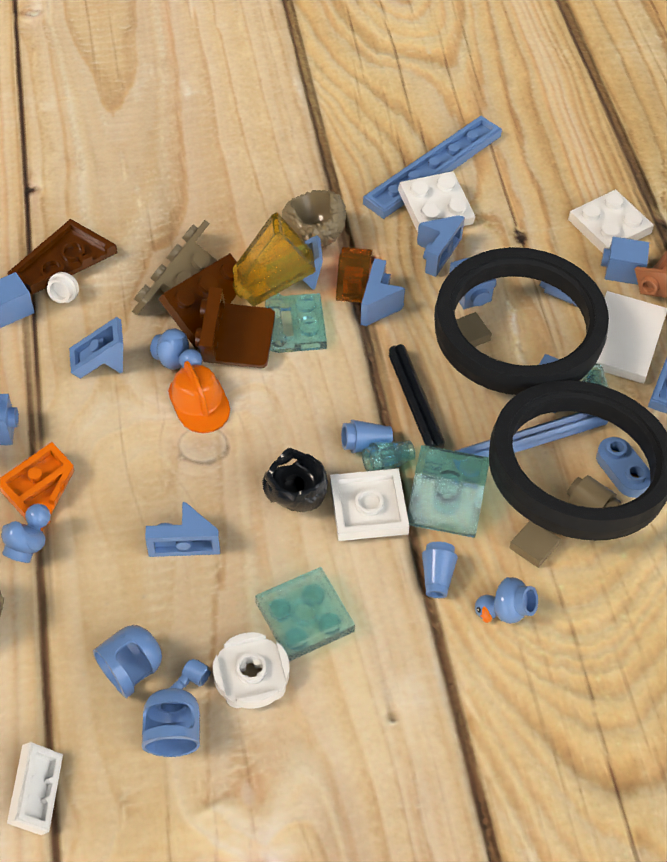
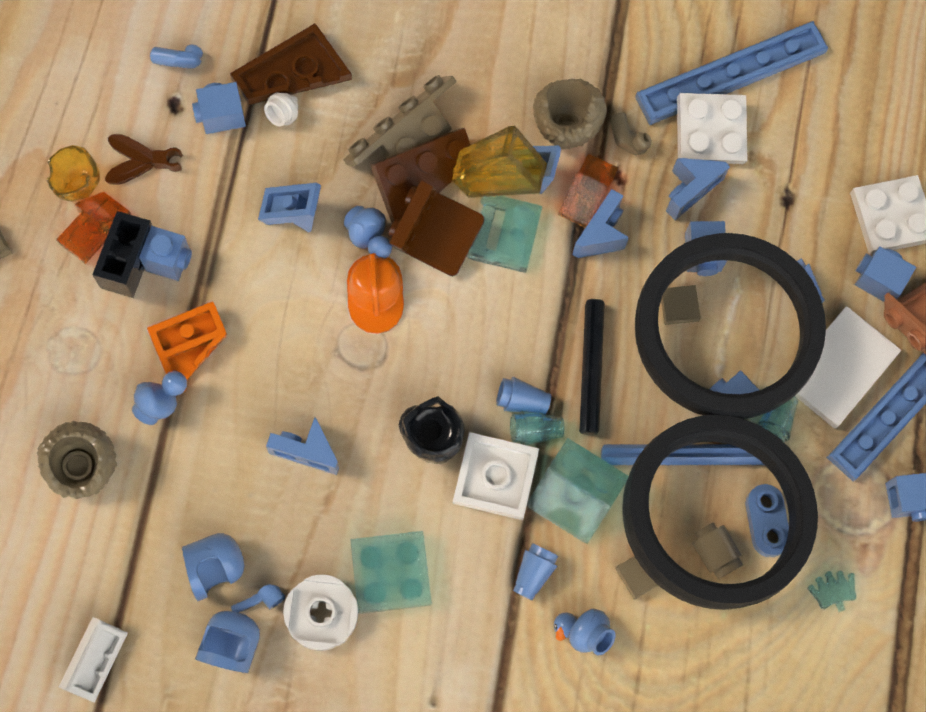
camera: 15 degrees right, 20 degrees up
(371, 231) = (626, 139): none -> dark tan arm

